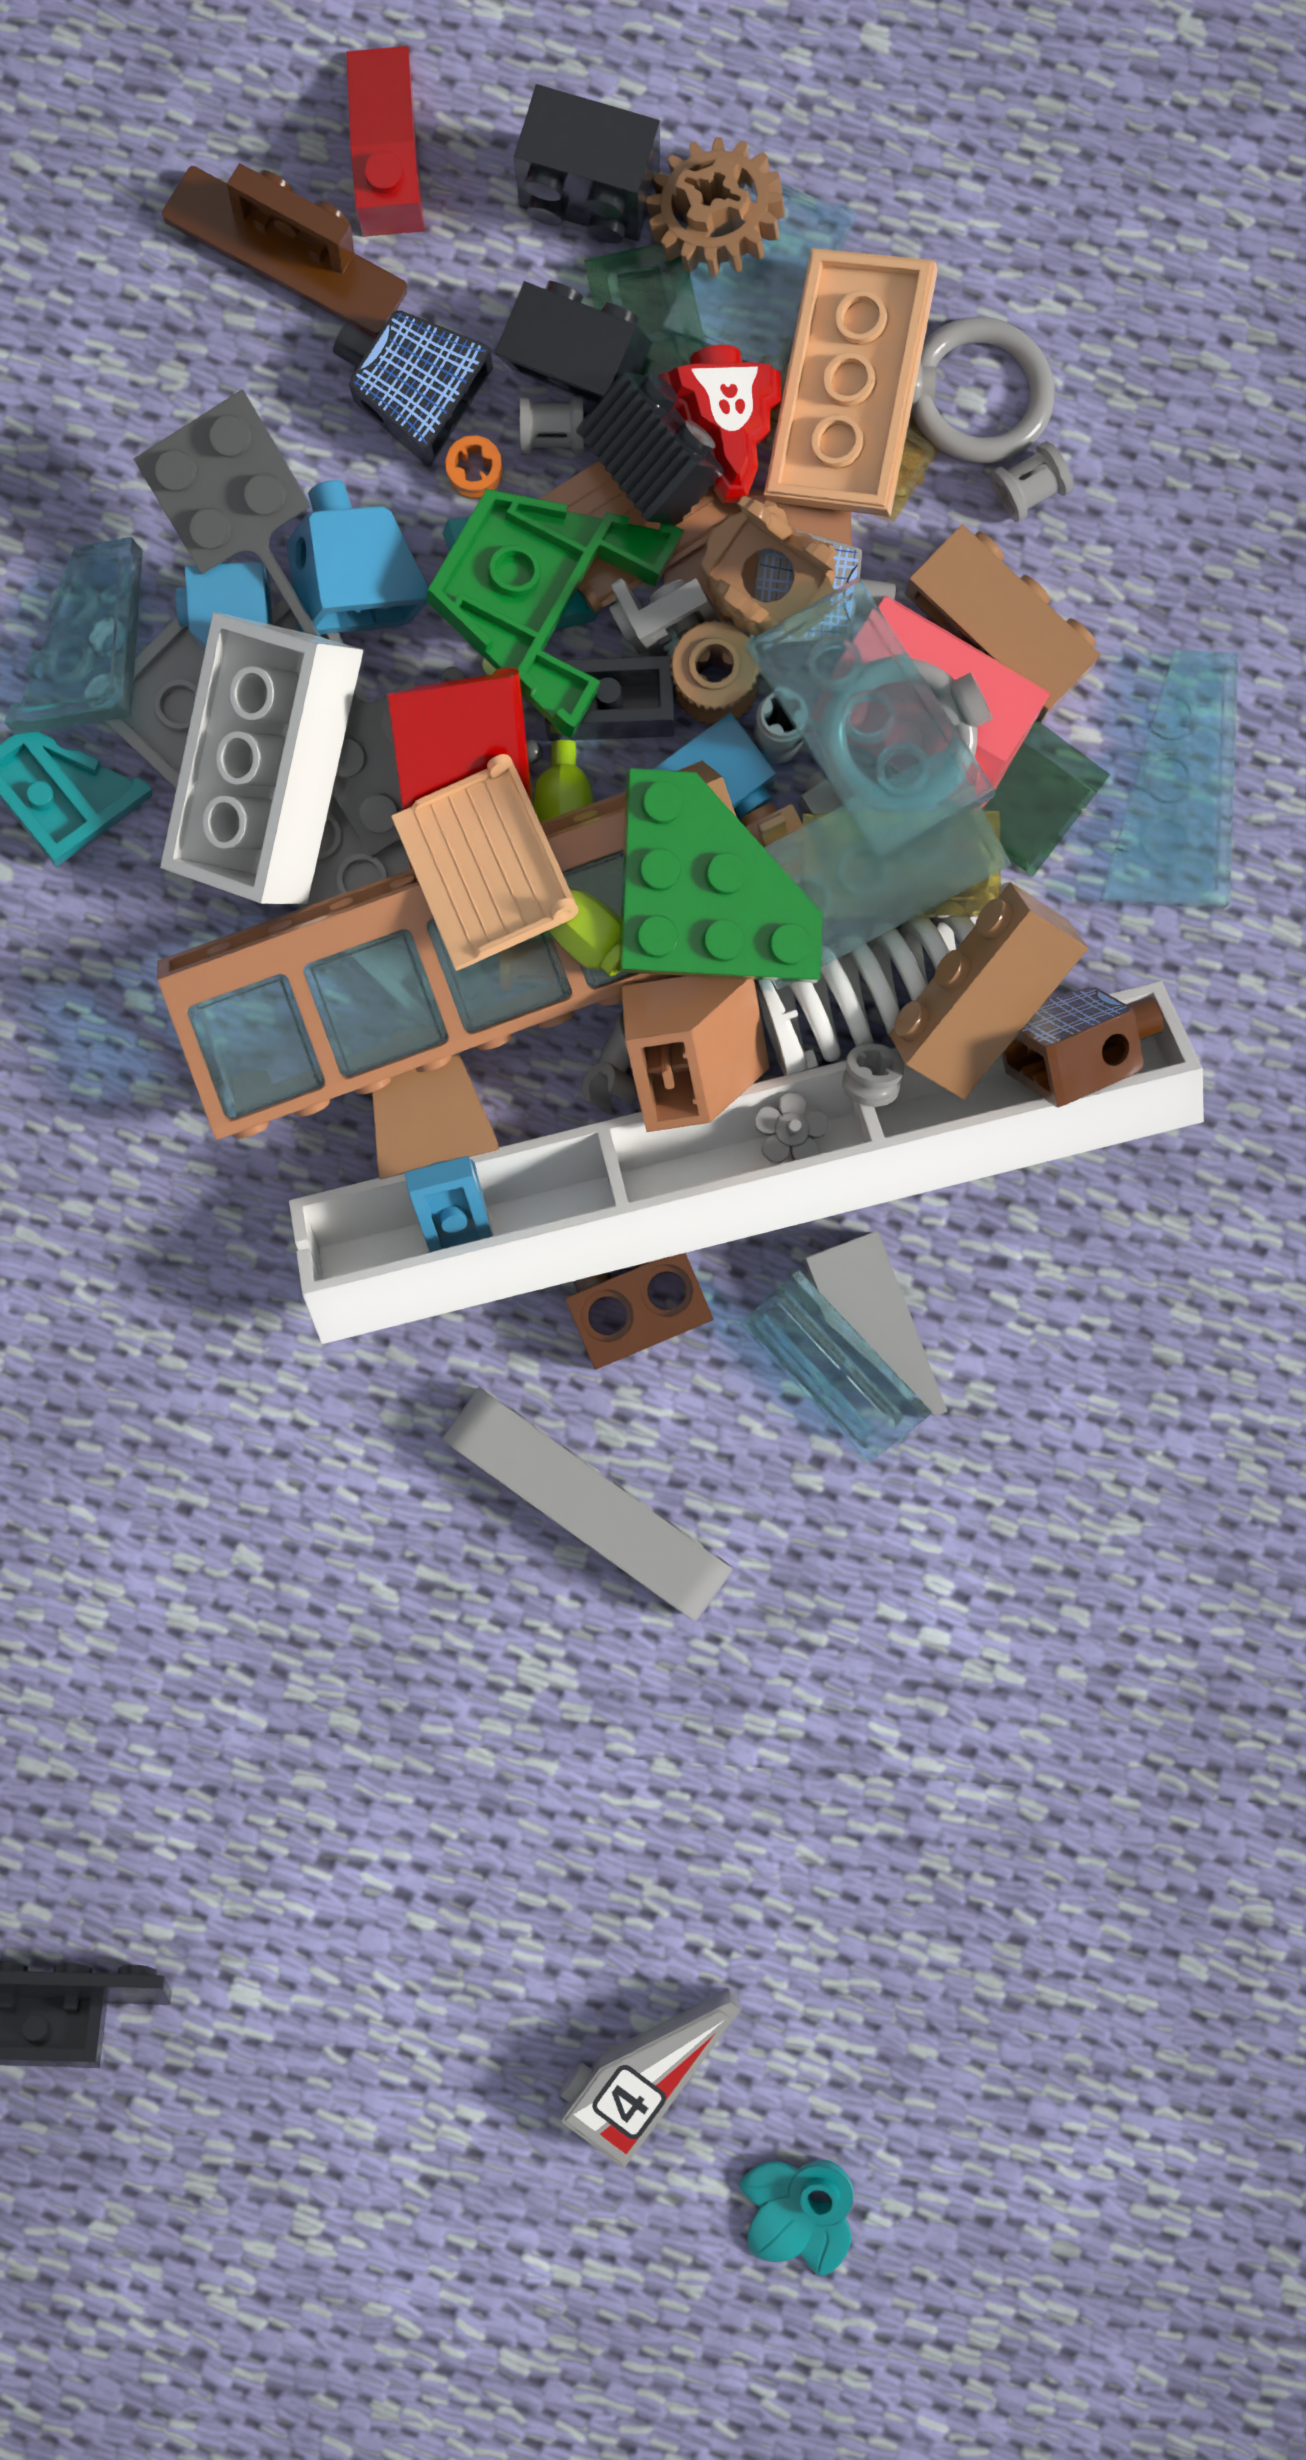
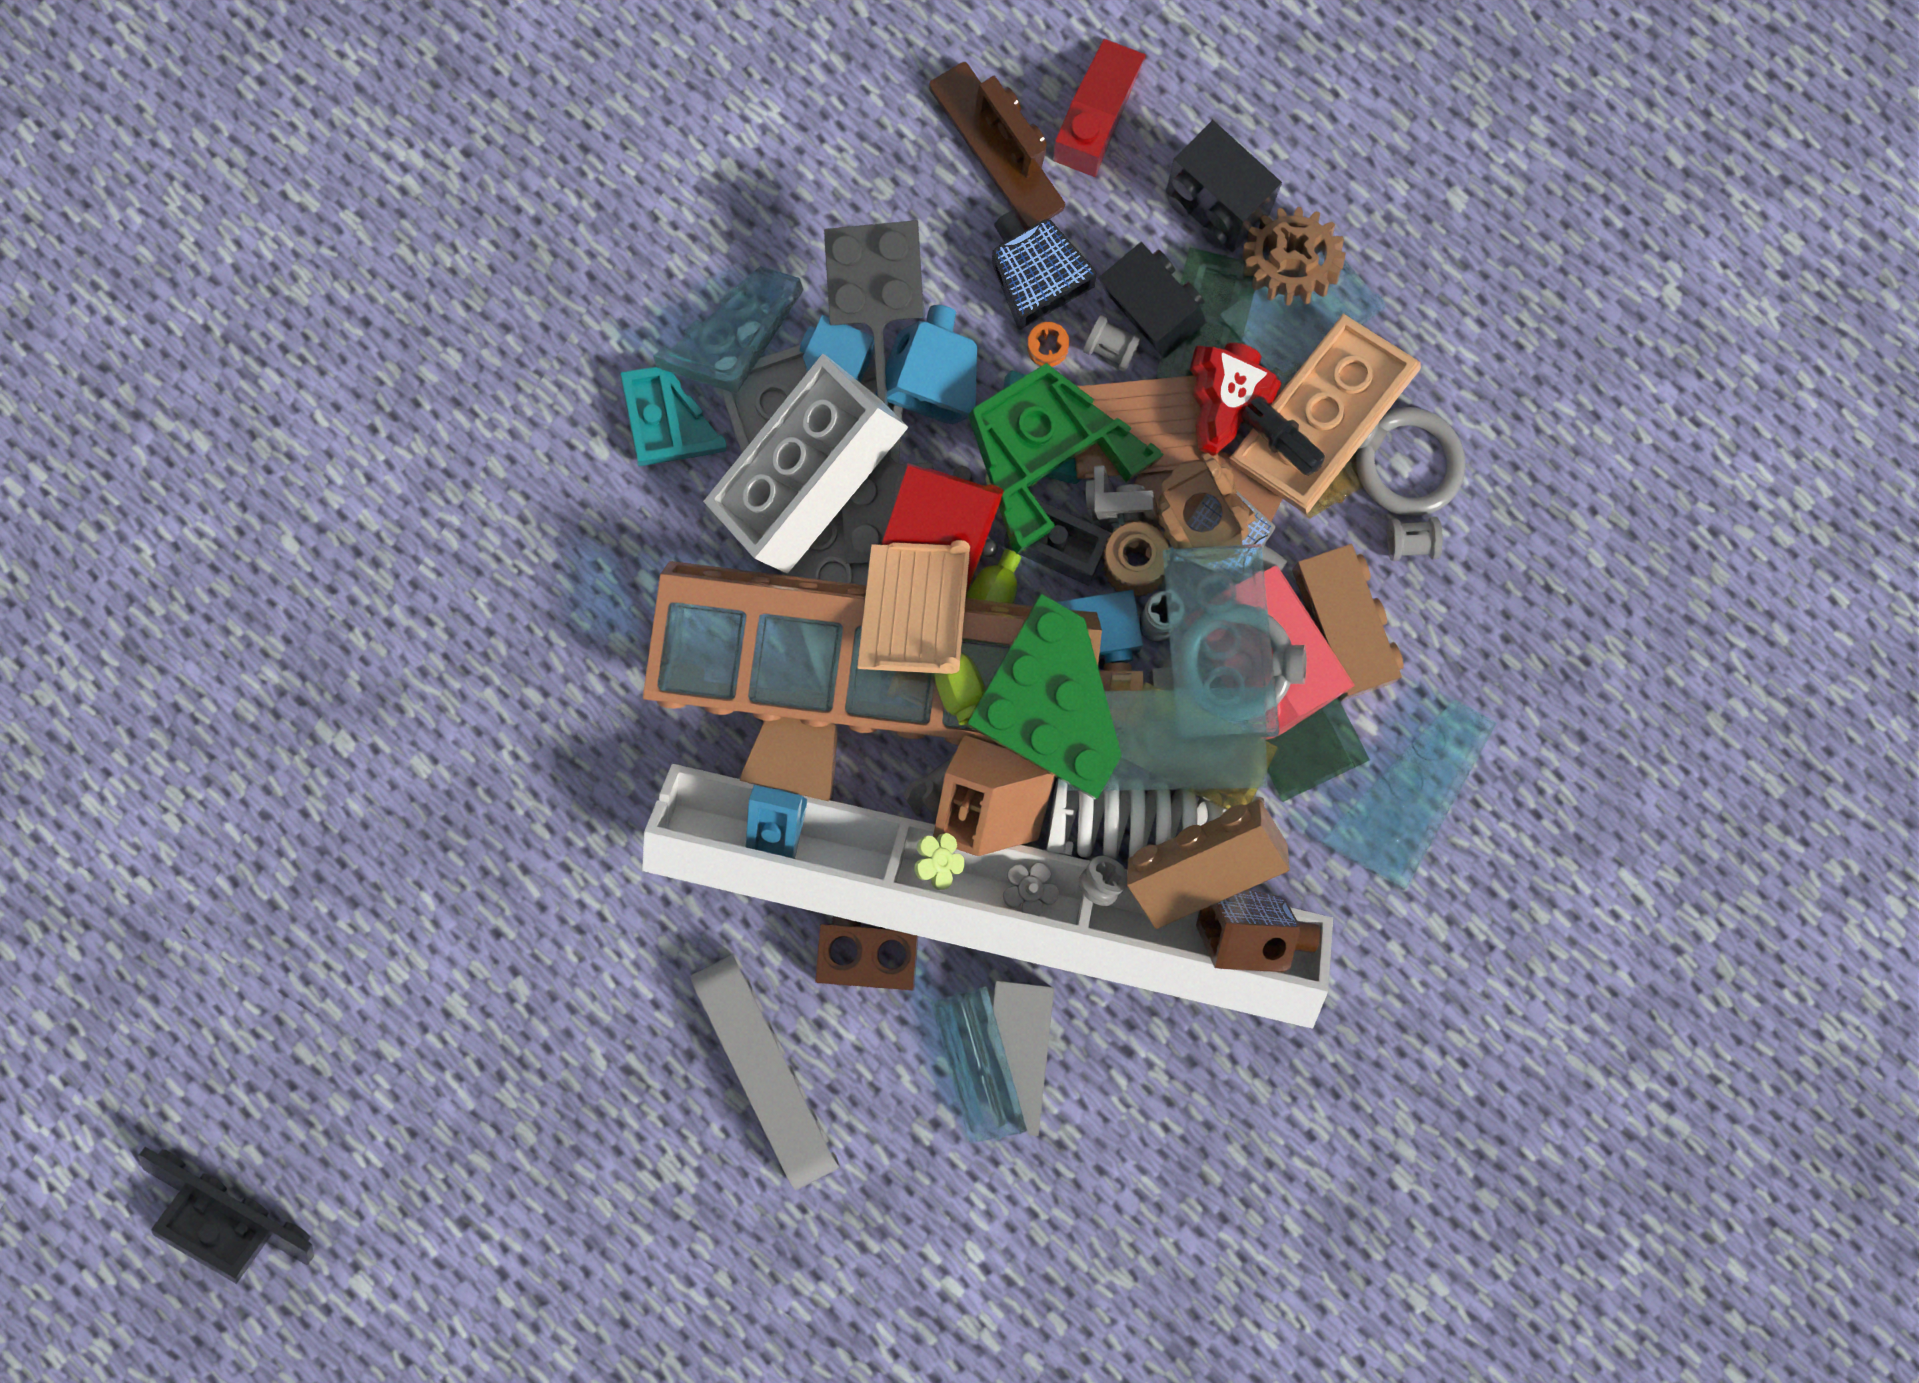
camera: 30 degrees right, 5 degrees down
(651, 447) = (1168, 390): black brick -> none
(668, 1150) = (939, 860): none -> yellowish green plant
(817, 434) = (1284, 437): none -> black axle

